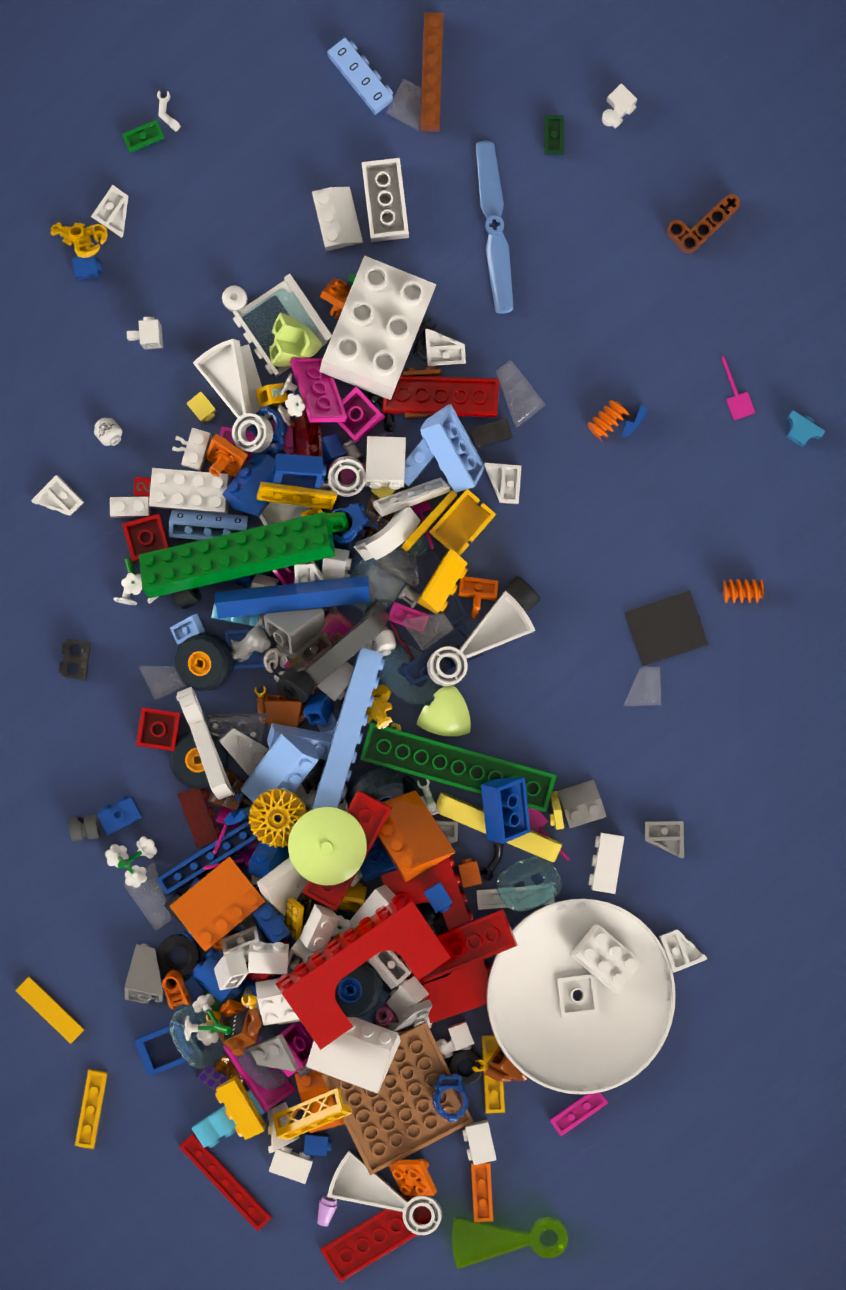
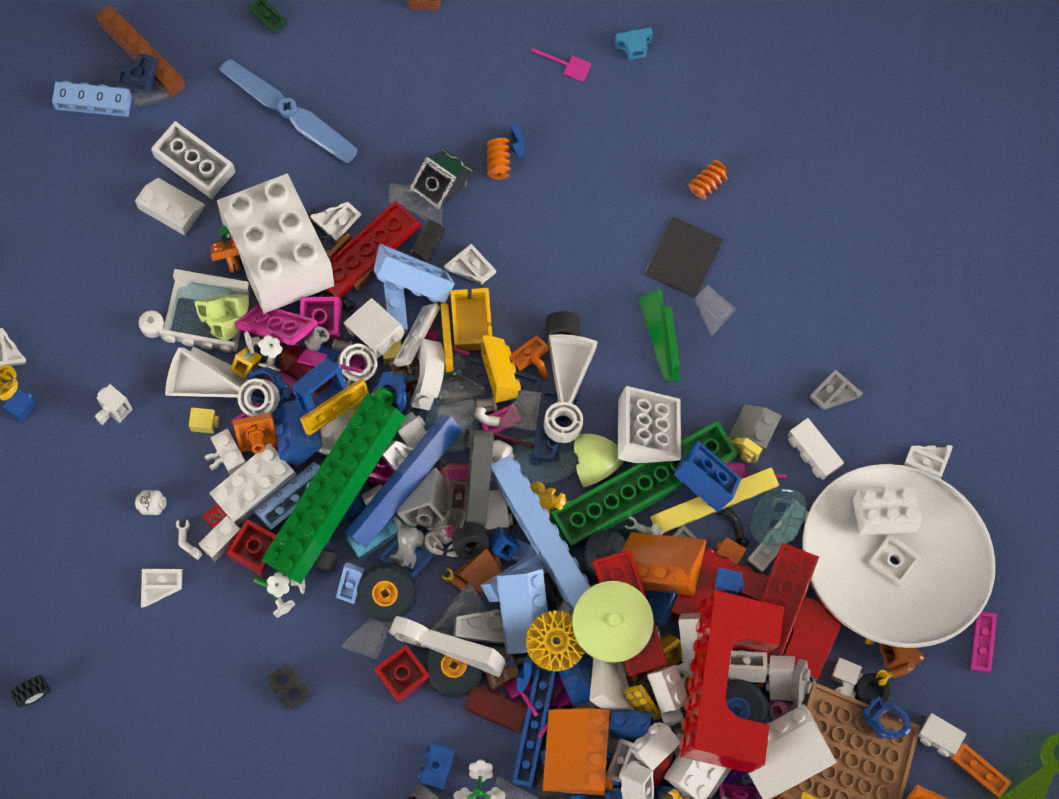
camera: 50 degrees left, 15 degrees down
(104, 498) = (193, 551): none -> white arm
(319, 444) = (314, 358): none -> dark pink piece
(337, 430) = (317, 338): none -> light grey bush
(397, 608) = (485, 419): none -> white arm
(409, 93) = (138, 75): none -> dark blue tile
(493, 1089) = (903, 685): yellow tile -> none
(503, 730) = (648, 427): none -> white slope
(549, 395) = (441, 178): none -> clear smoke slope
(589, 669) = (662, 333): none -> green wedge

